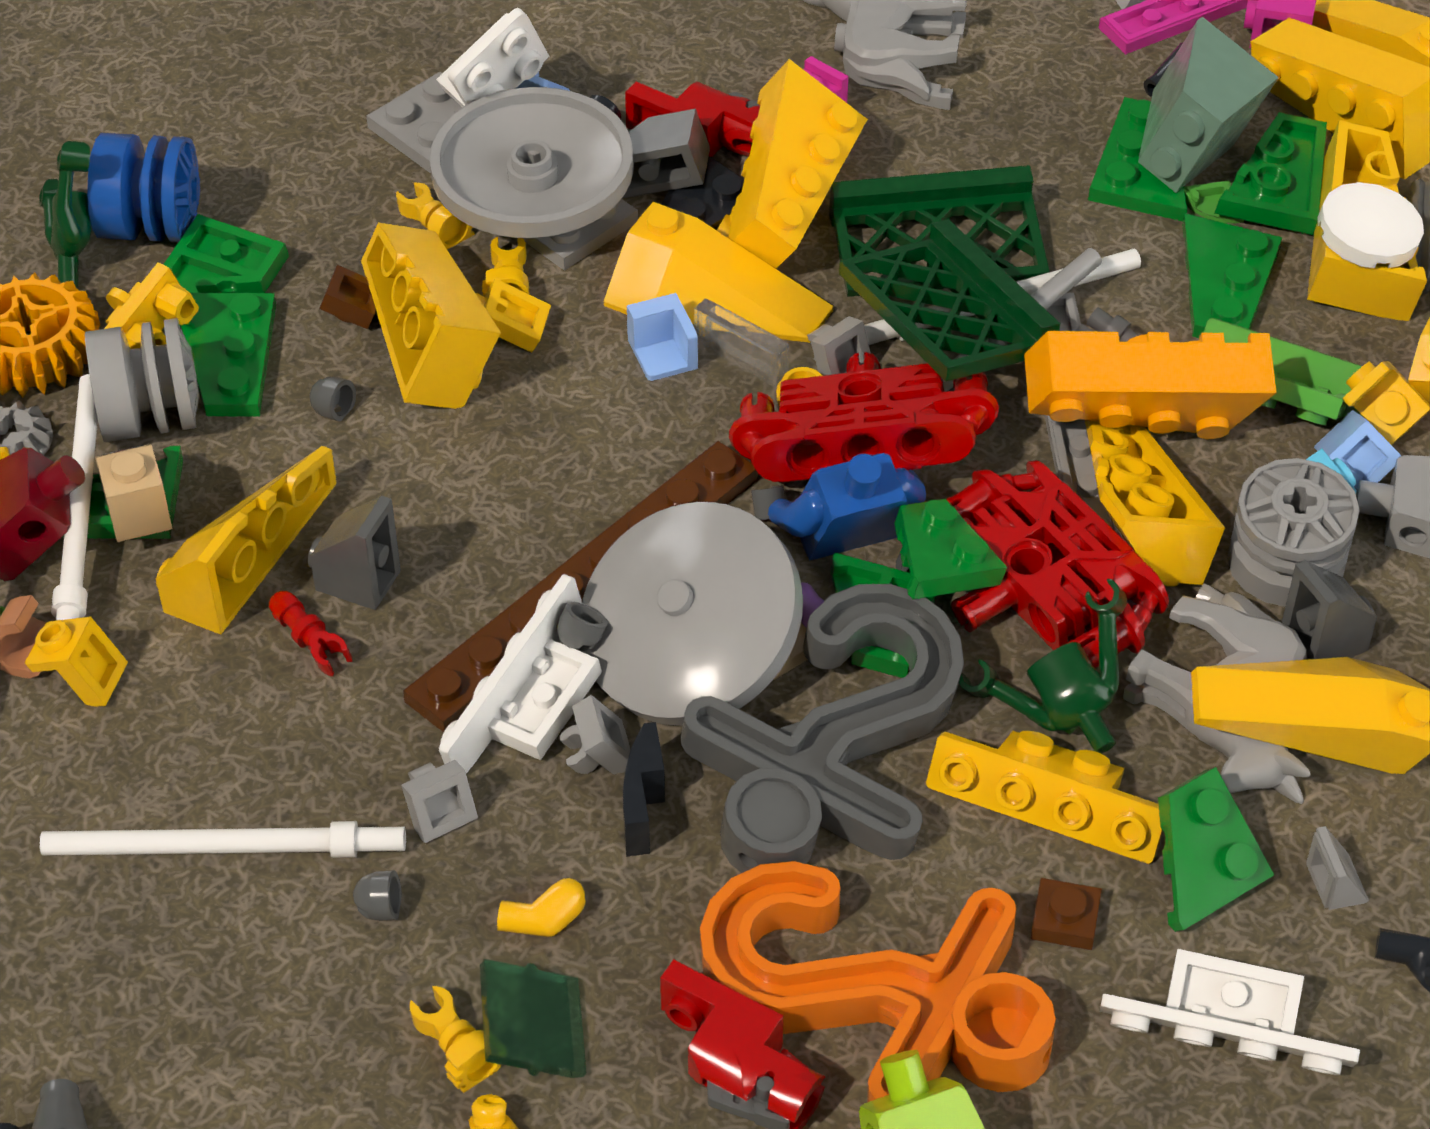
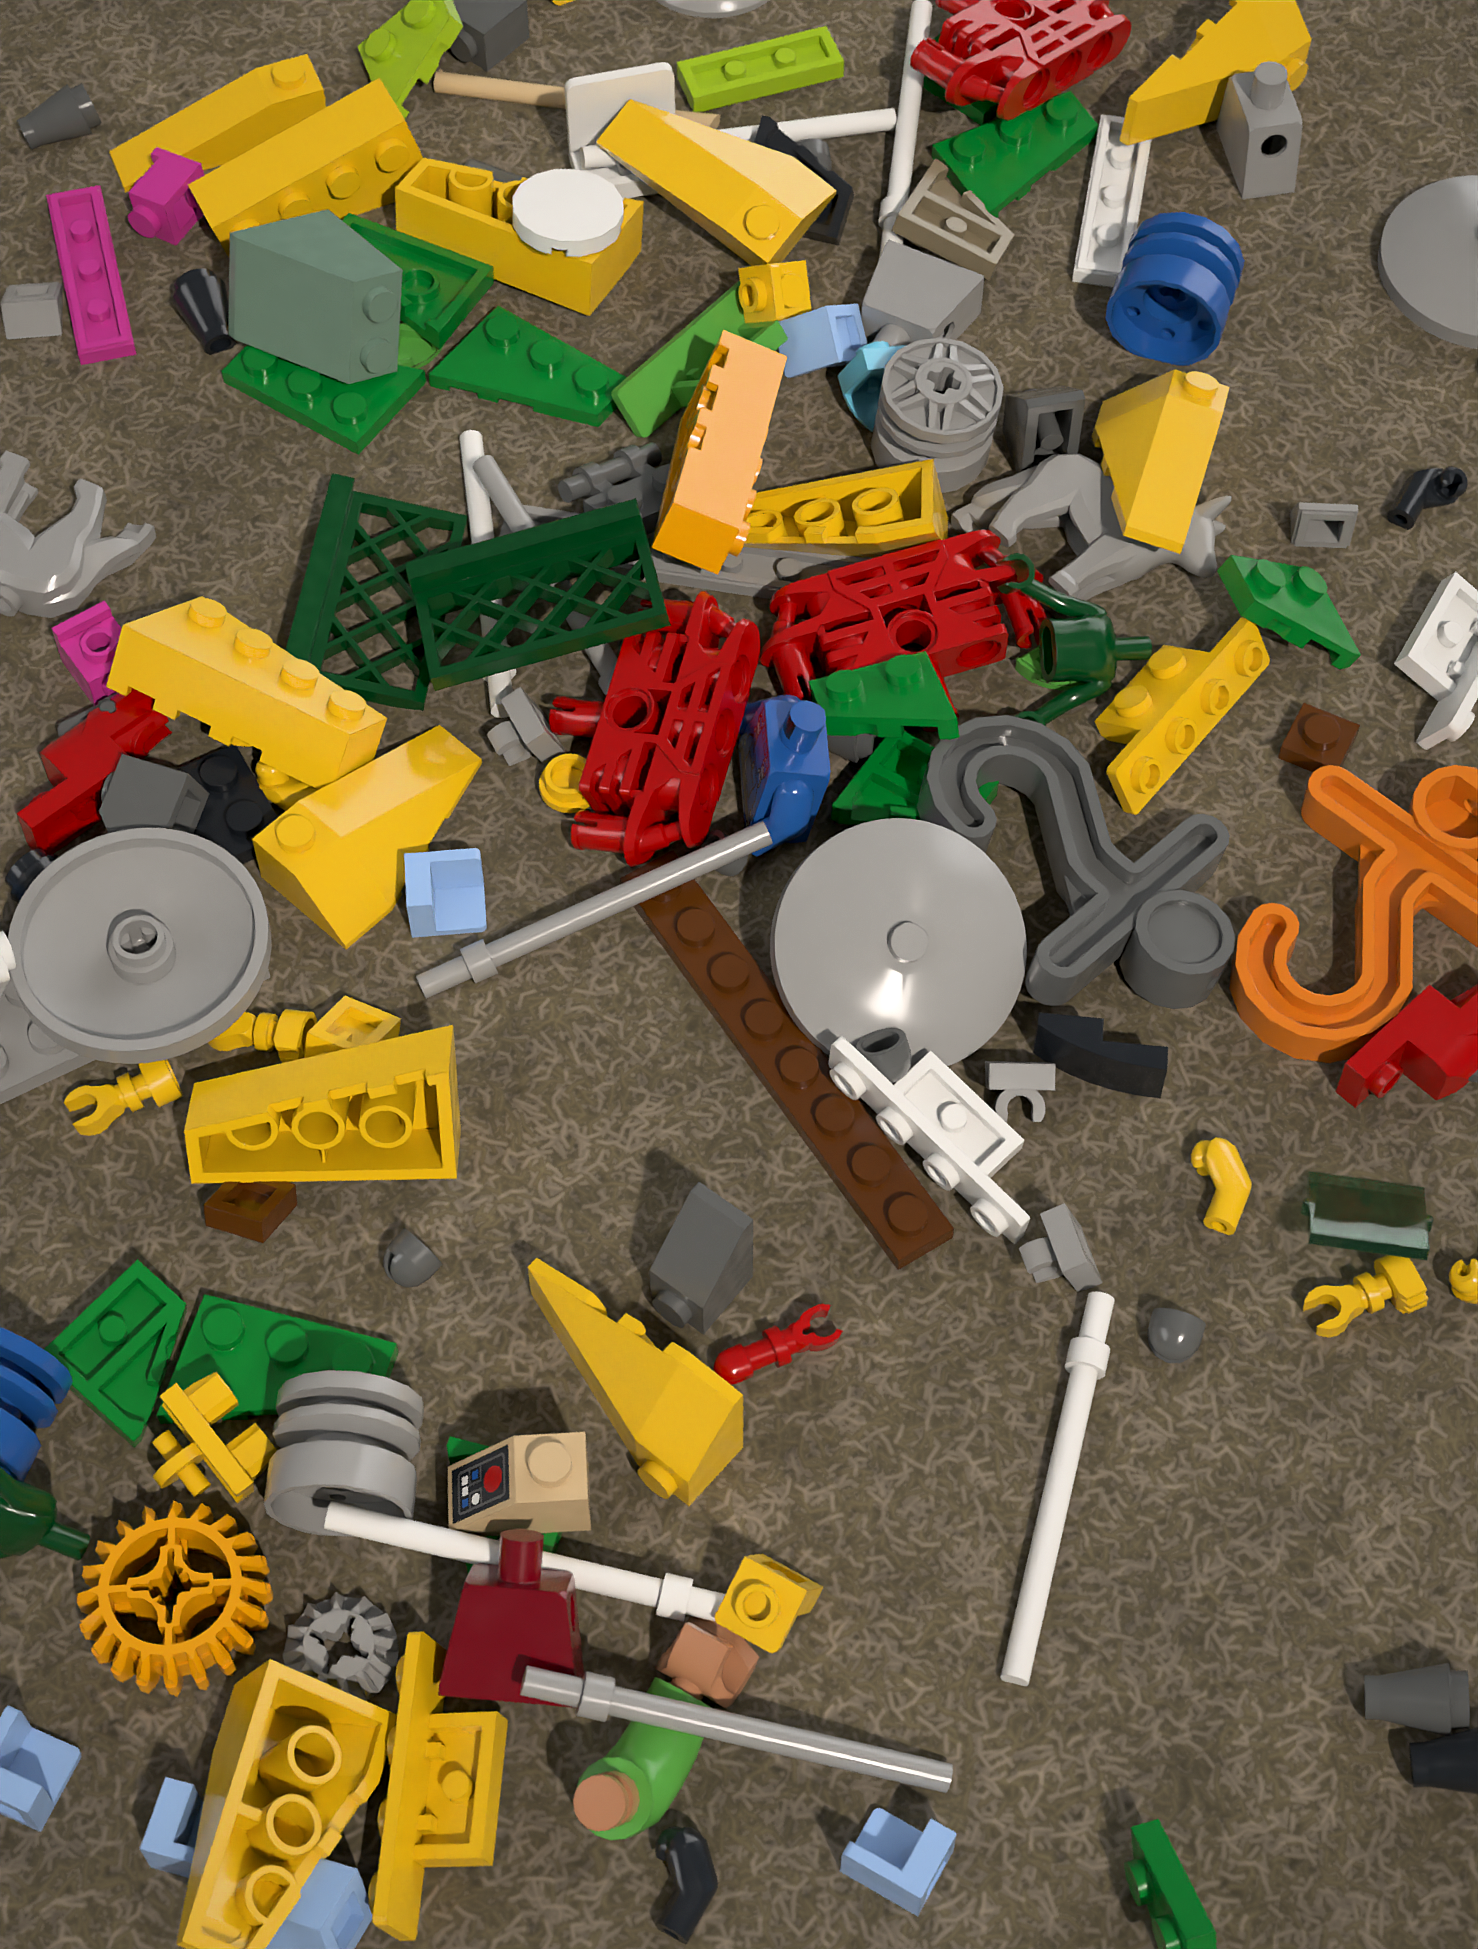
camera: 75 degrees left, 10 degrees up
(615, 379) = (481, 959): none -> light grey bar
(741, 342) = (487, 813): clear tile -> none

